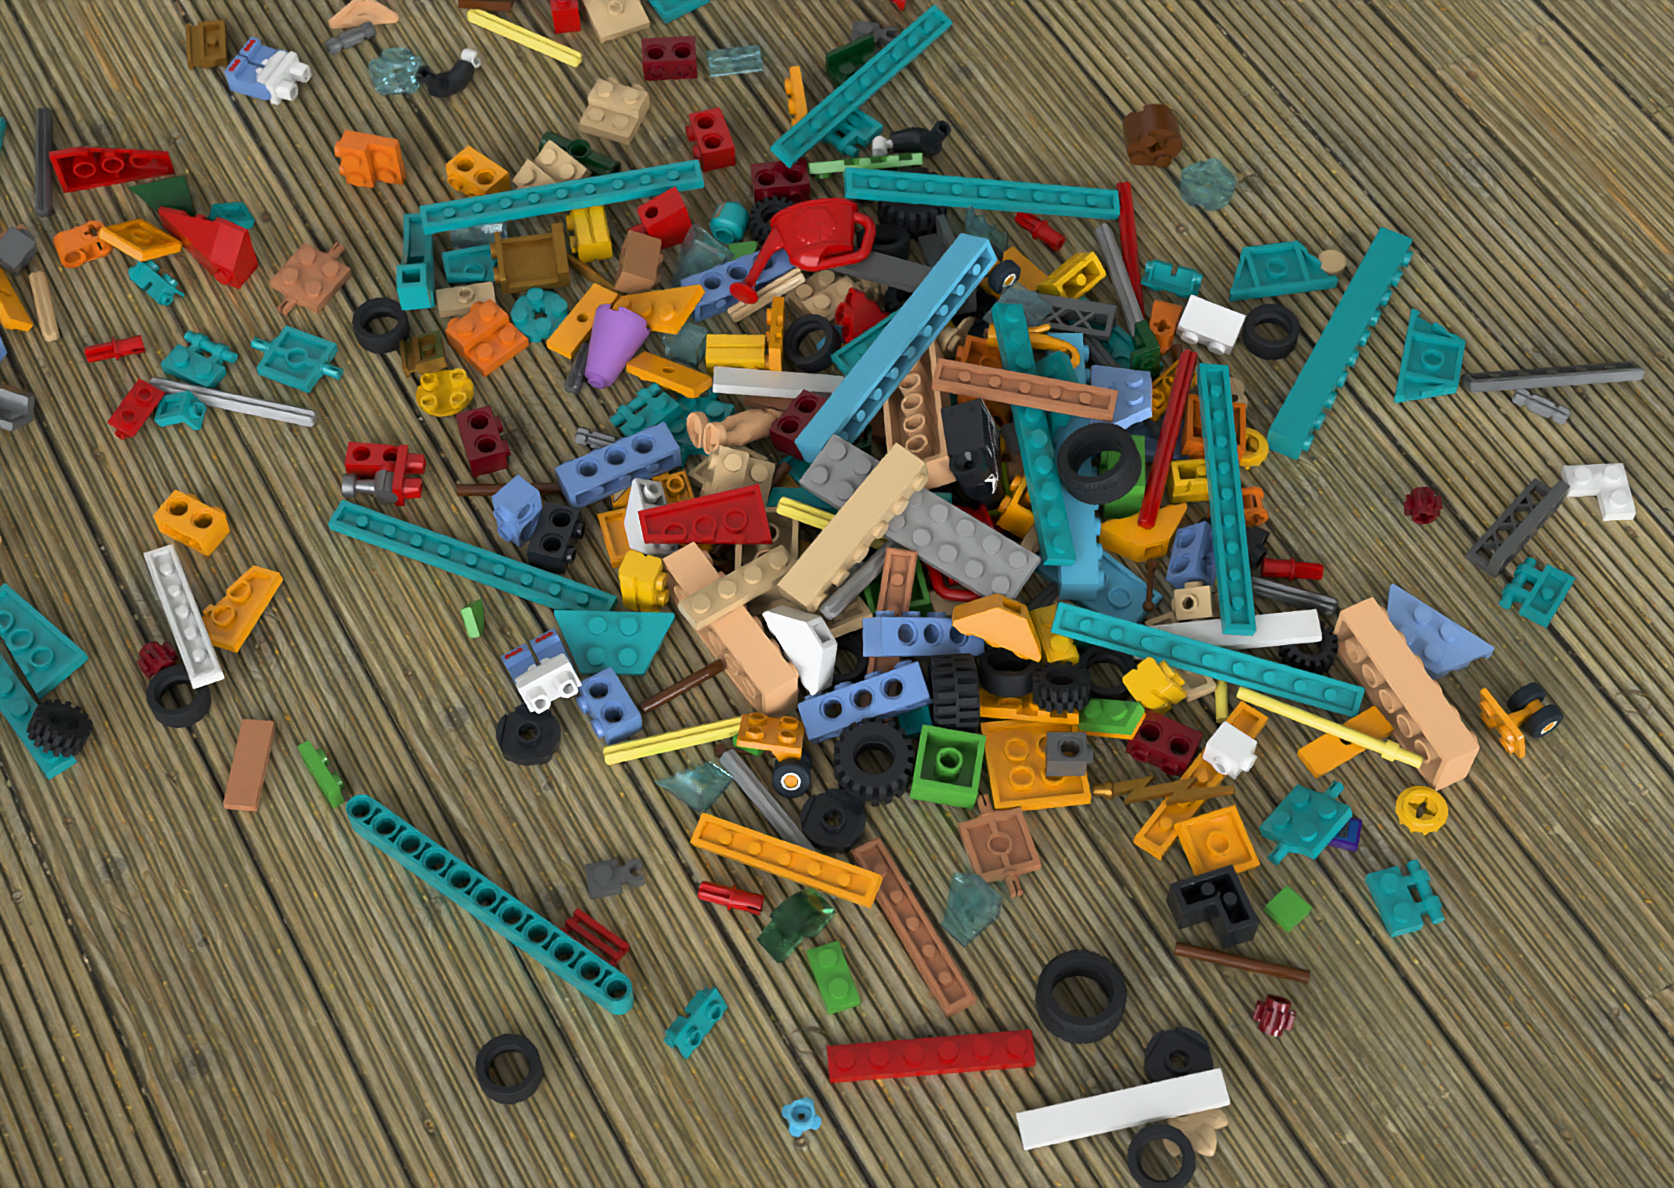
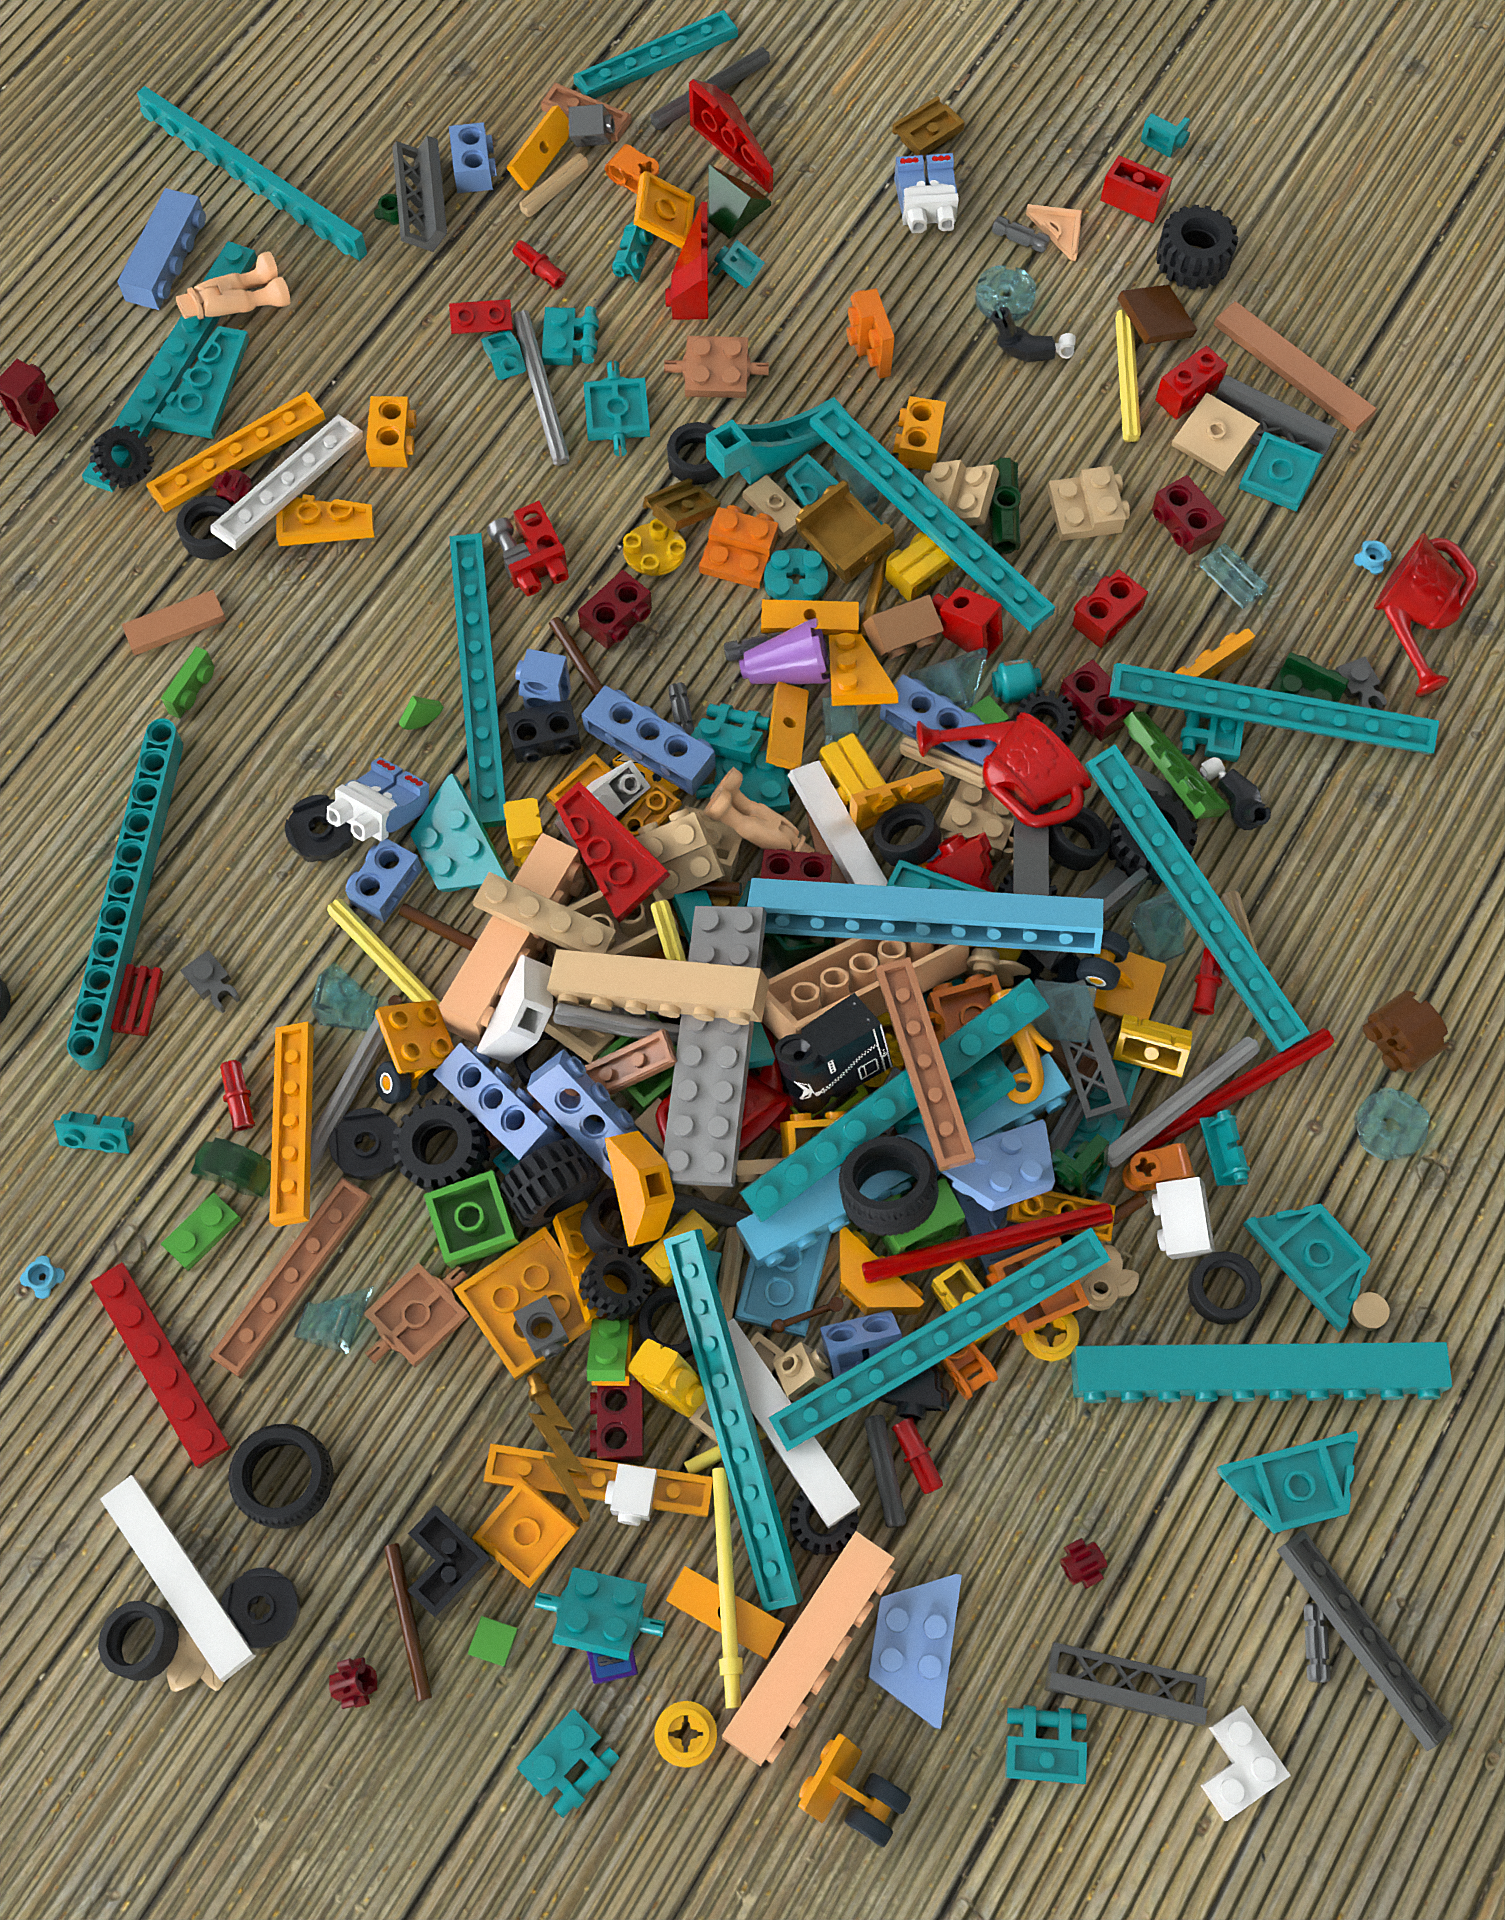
camera: 60 degrees right, 10 degrees up
(118, 646) = (236, 451): none -> light orange plate

